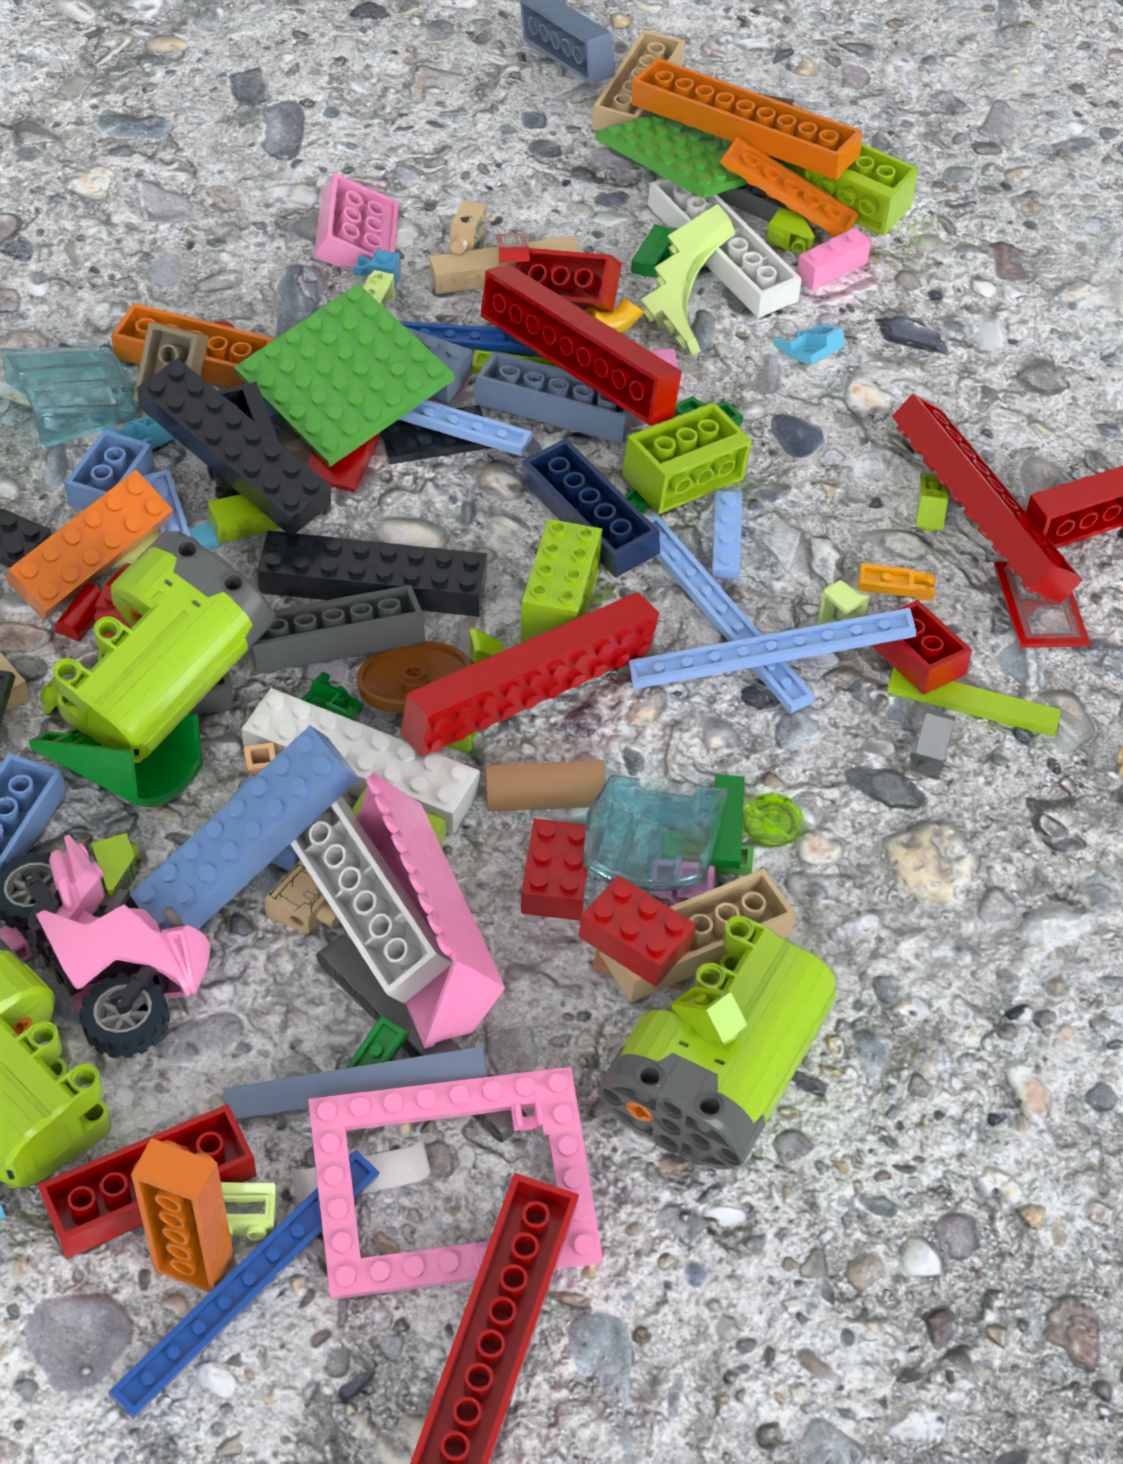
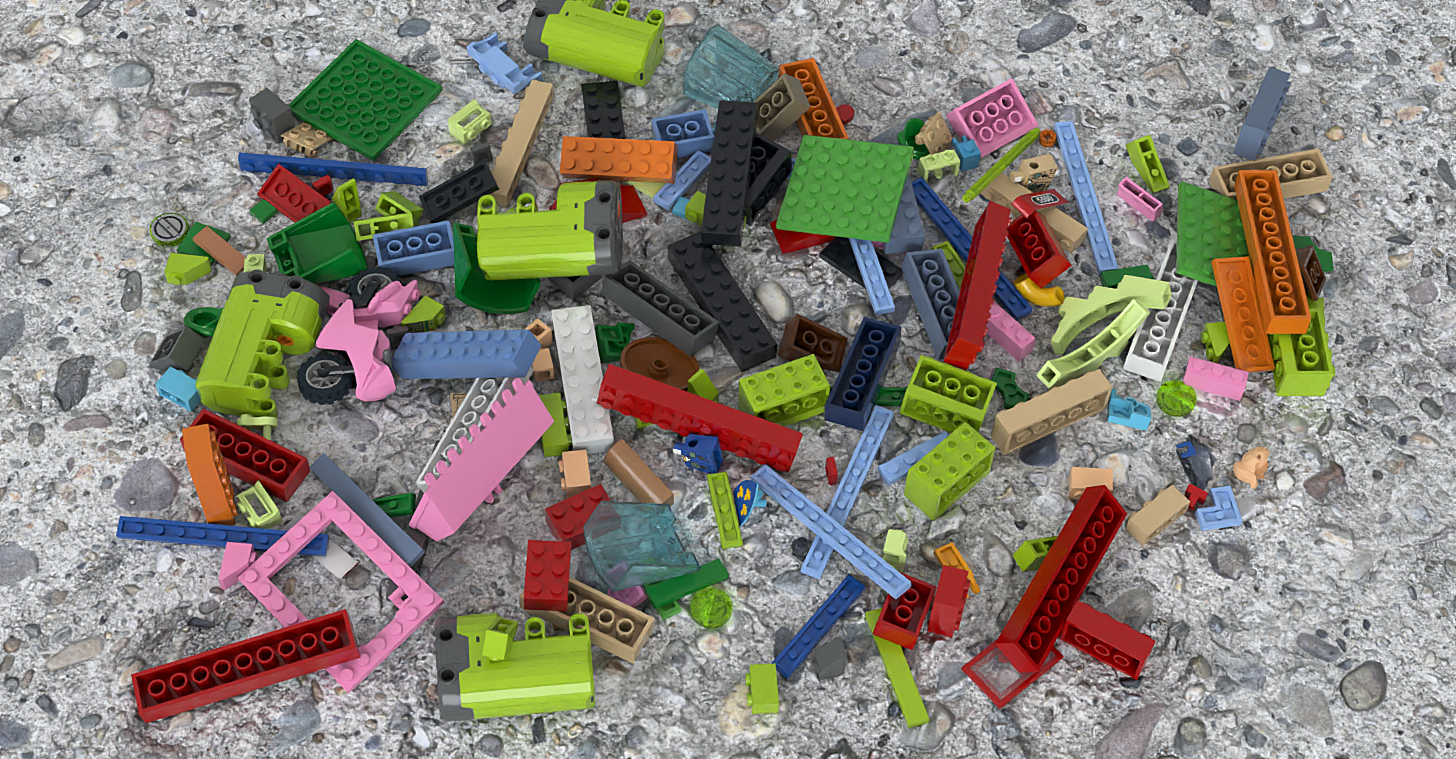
camera: 55 degrees right, 5 degrees up
(115, 1131) = (258, 423): none -> yellowish green piece
(304, 1284) = (235, 561): none -> bright pink slope
(316, 292) = (907, 137): none -> green piece
(330, 274) = (934, 134): none -> tan hinge
(421, 204) = (1047, 133): none -> orange bush
(433, 248) = (1001, 165): none -> lime piece
(487, 841) = (576, 472): none -> light nougat brick
(502, 532) = (807, 337): none -> reddish brown slope
(523, 218) = (1085, 196): none -> light blue plate
(528, 152) = (1147, 163): none -> lime slope
(566, 705) = (701, 453): none -> blue torso
(569, 183) = (1140, 199): none -> bright pink piece
(652, 734) = (724, 510): none -> lime tile
(664, 701) = (746, 498): none -> shield
(686, 610) = (831, 471): none -> red tile
(730, 331) = (1092, 354): none -> yellowish green arch
(771, 391) = (1051, 411): none -> tan brick
(780, 509) = (949, 471): none -> lime brick
(827, 302) = (1176, 398): none -> clear neon green tile
(872, 739) = (818, 626): none -> blue tile
(874, 420) = (1084, 477): none -> light nougat brick
(891, 331) = (1186, 449): none -> blue sticker
(919, 828) = (763, 688): none -> lime brick
(949, 591) = (949, 601): none -> red brick
(956, 294) = (1252, 466): none -> light nougat hair
(956, 353) = (1195, 495): none -> red tile
(956, 391) = (1157, 514): none -> tan brick
(991, 347) = (1223, 514): none -> light blue plate

